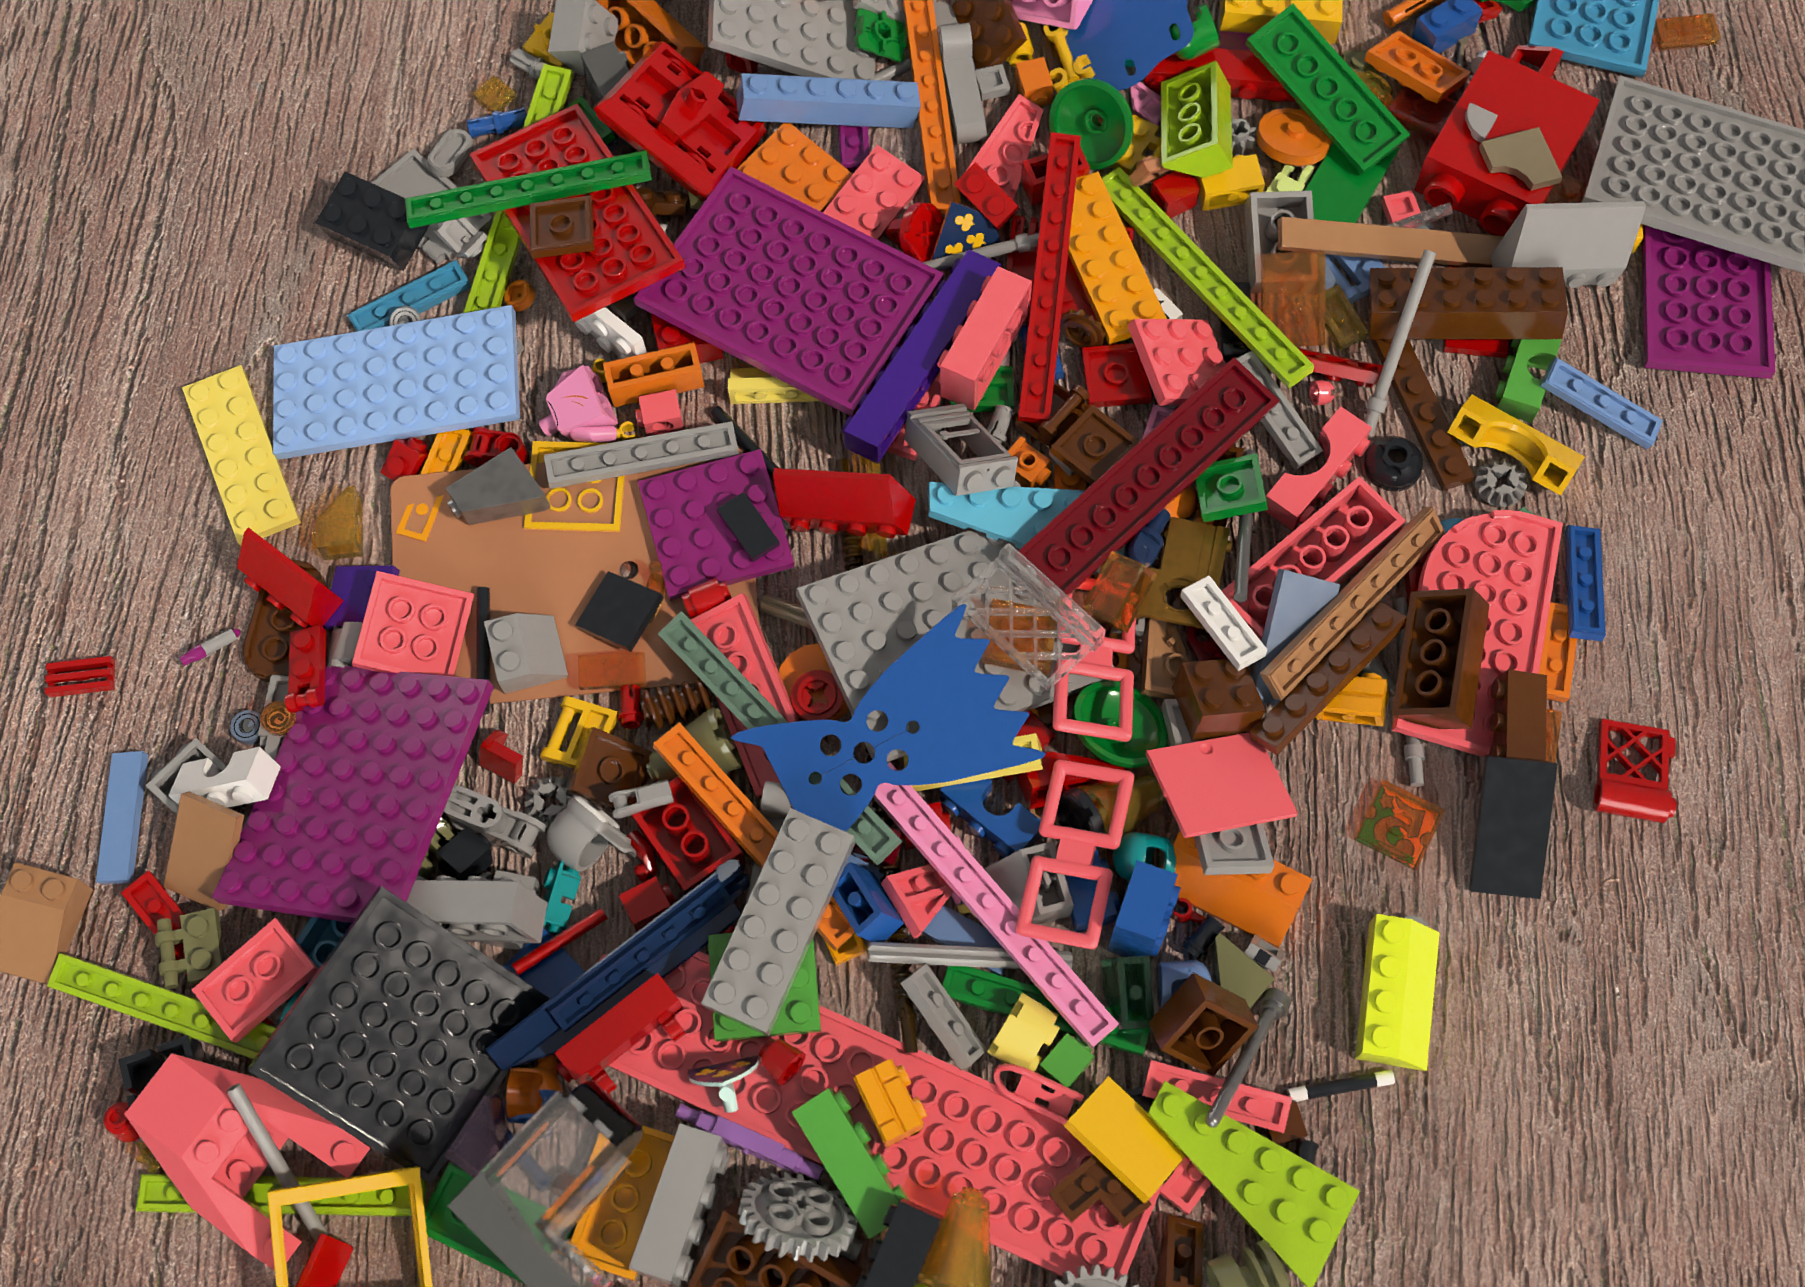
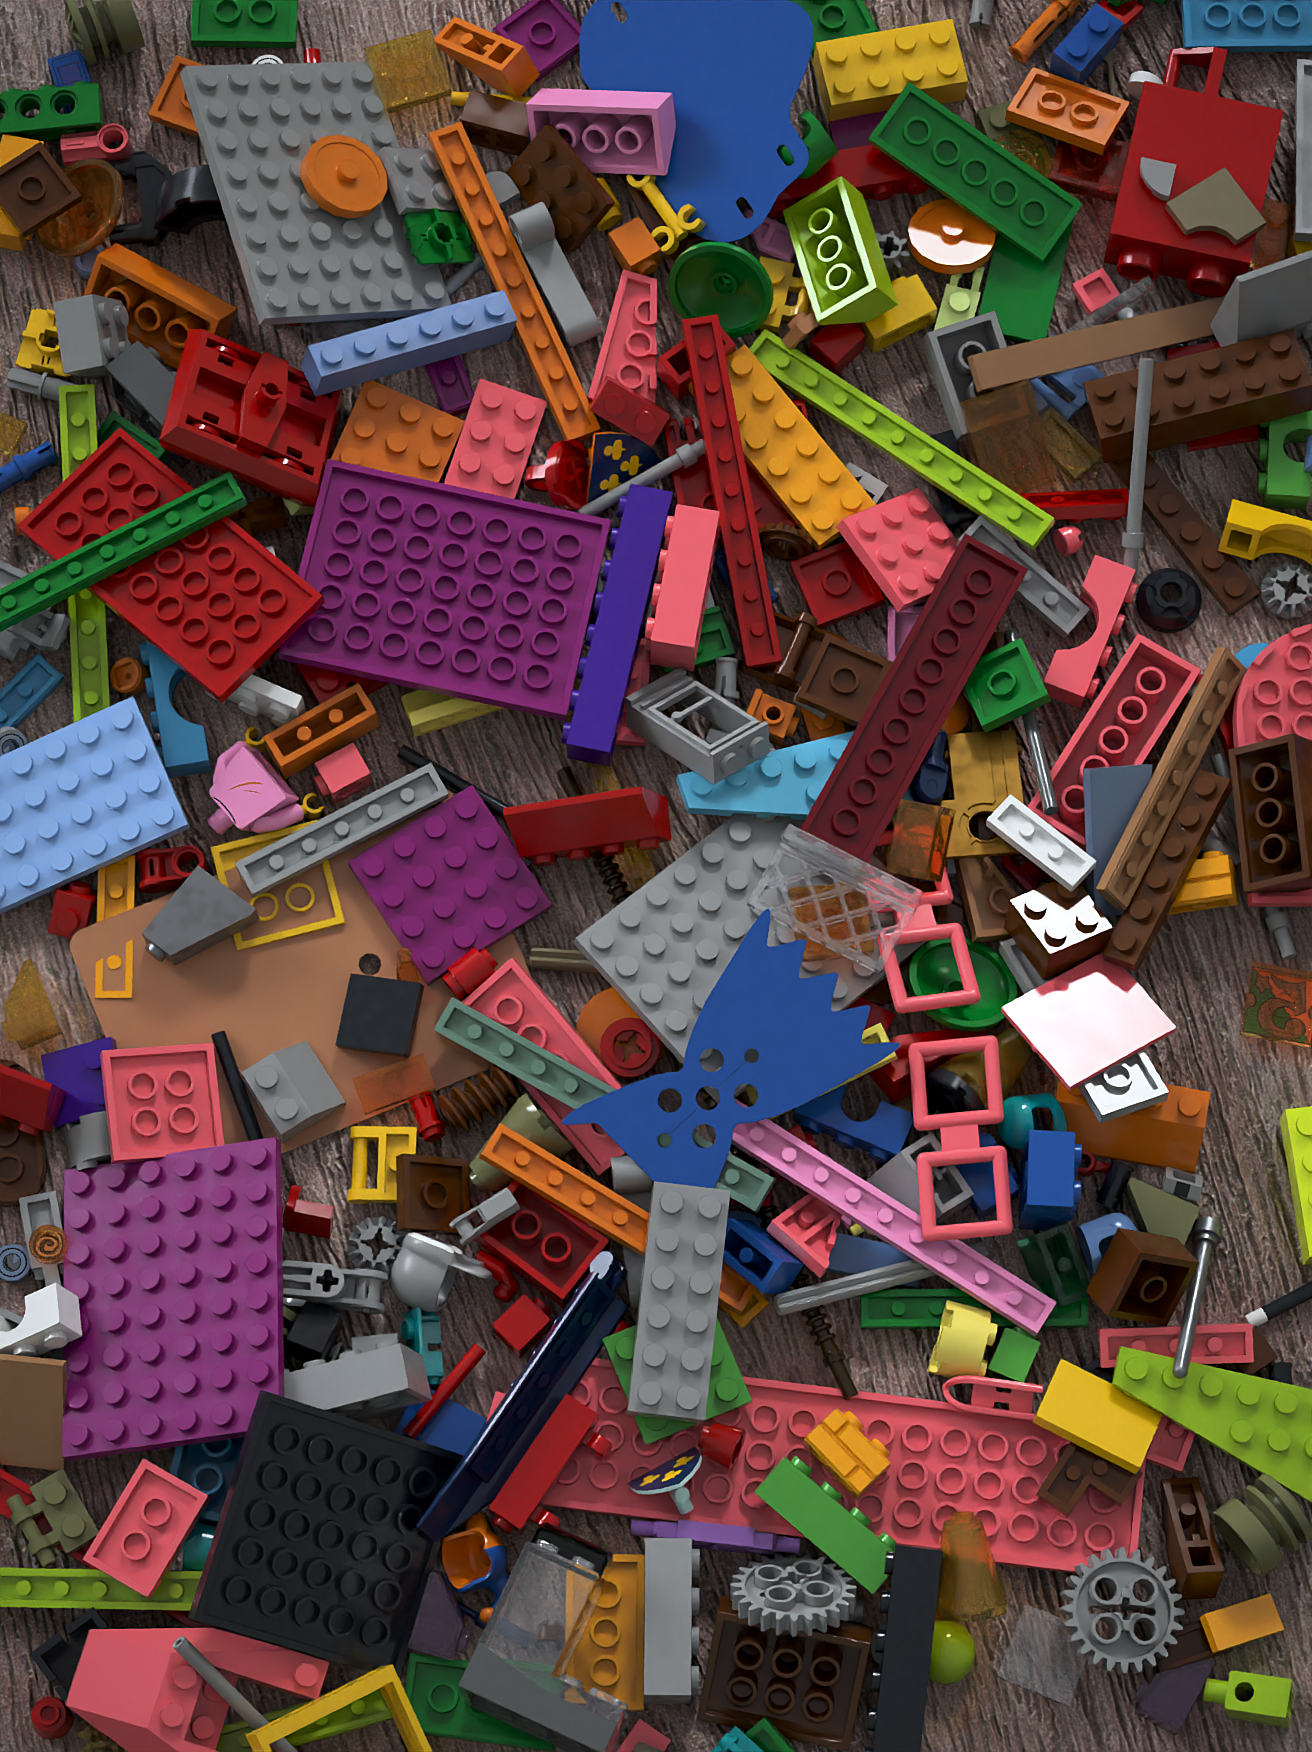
camera: 20 degrees left, 5 degrees up
(306, 669) = (59, 1180): red plate -> none
(541, 357) = (183, 743): none -> dark azure arch
(561, 227) = (167, 592): reddish brown tile -> none
(748, 527) = (491, 880): black tile -> none
(943, 1016) = (873, 1349): light grey plate -> none
(992, 82) = (586, 259): light grey plate -> none

